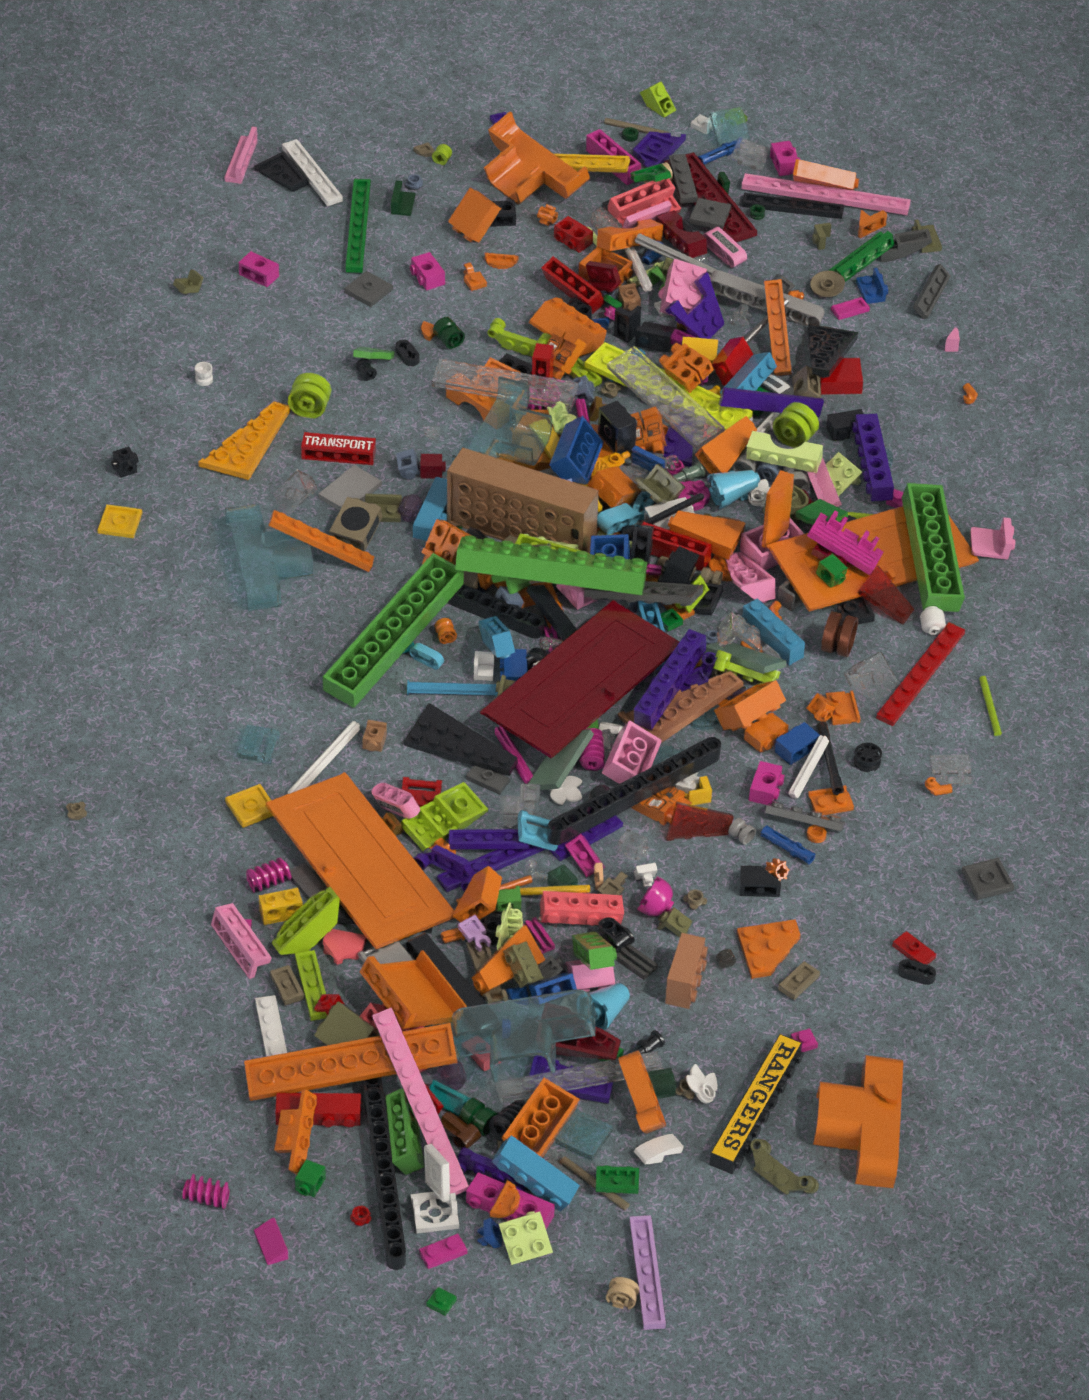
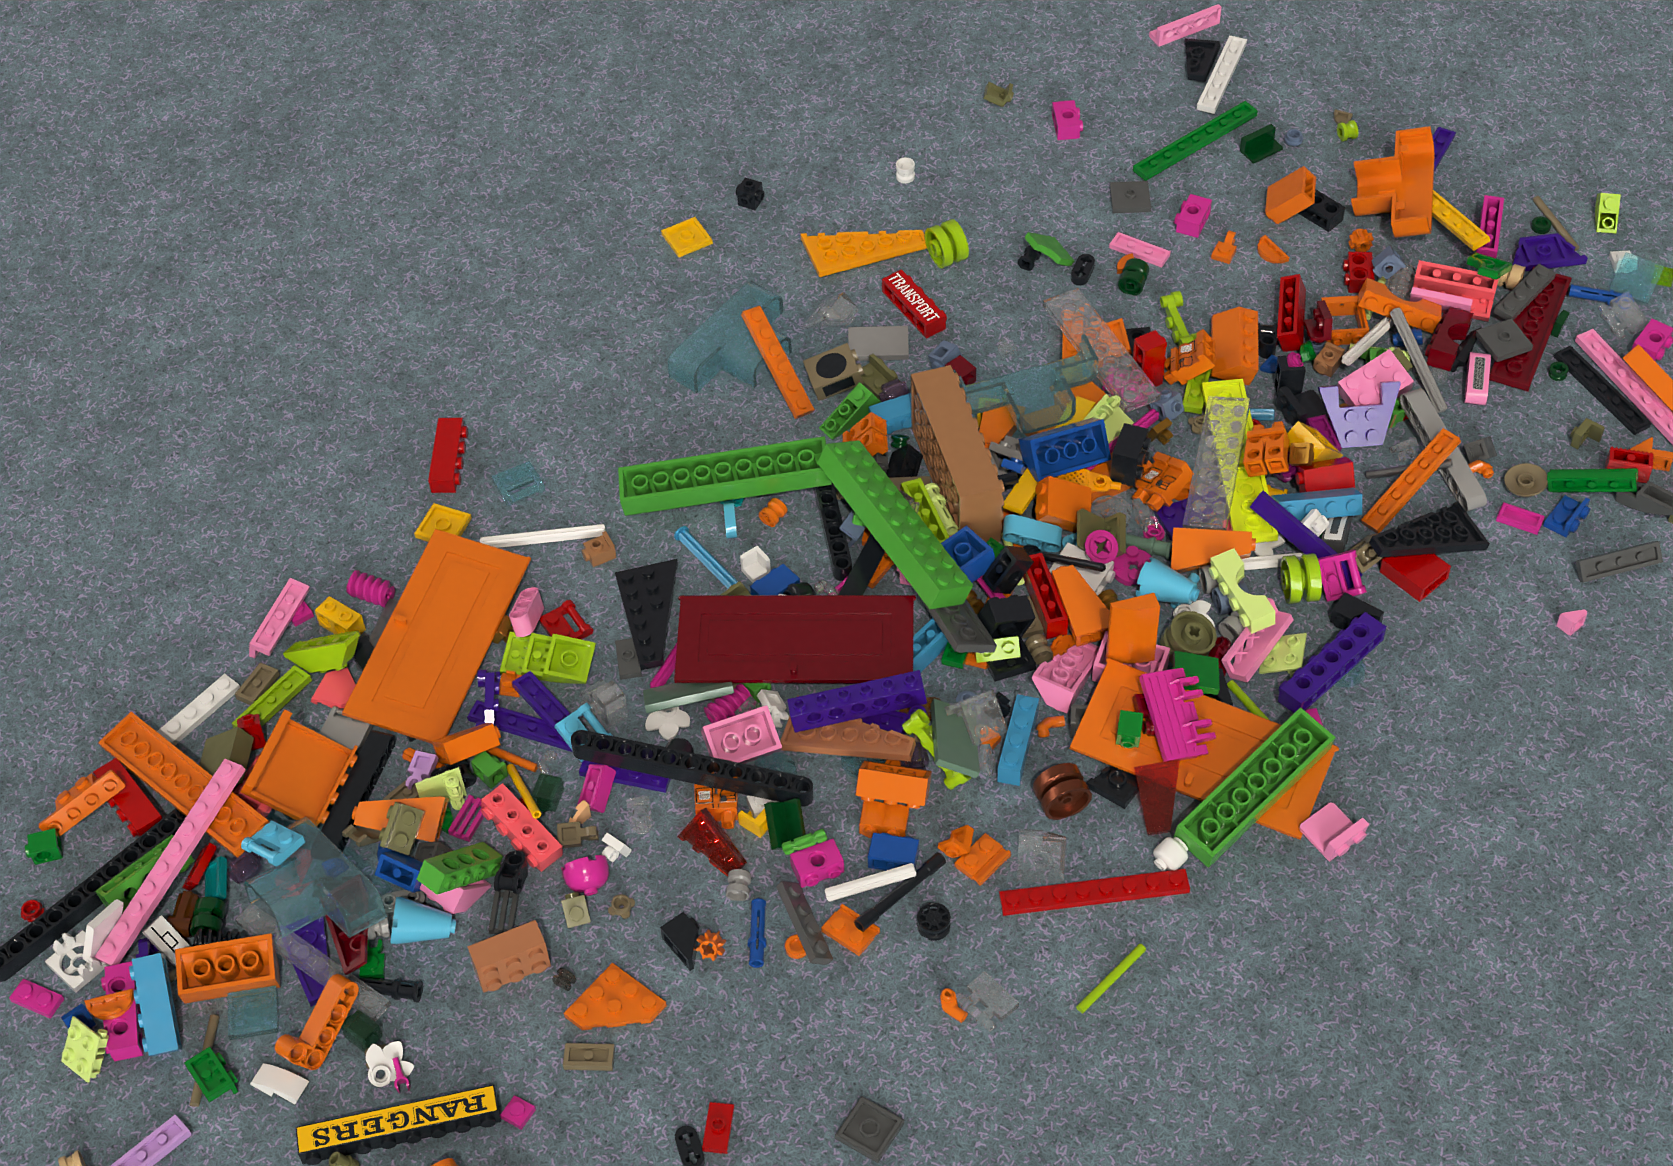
camera: 55 degrees right, 5 degrees up
(76, 810) = (337, 425): dark tan plate -> none
(185, 765) = (447, 454): none -> red brick
(400, 539) = (849, 411): none -> bright green slope
(416, 317) = (1140, 249): none -> bright pink tile
(473, 1030) = (278, 838): none -> medium azure plate
(481, 1146) = (165, 938): none -> white tile
(496, 637) = (781, 546): dark azure brick -> none
(591, 213) = (1387, 263): none -> sand blue brick
(645, 459) = (1128, 505): blue tile -> none
(675, 487) = (1110, 546): none -> dark pink gear
(711, 352) = (1301, 454): none -> pearl gold tile
(720, 1084) = (399, 1075): none -> dark pink hand
(724, 775) = (784, 822): none -> dark green panel
(749, 774) = (804, 841): none -> bright green axle
(765, 385) = (1315, 522): none -> white tile
(805, 399) = (1333, 575): none -> dark pink plate
(866, 231) = (1629, 459): none -> red brick
(971, 394) = (1519, 685): orange arm -> none

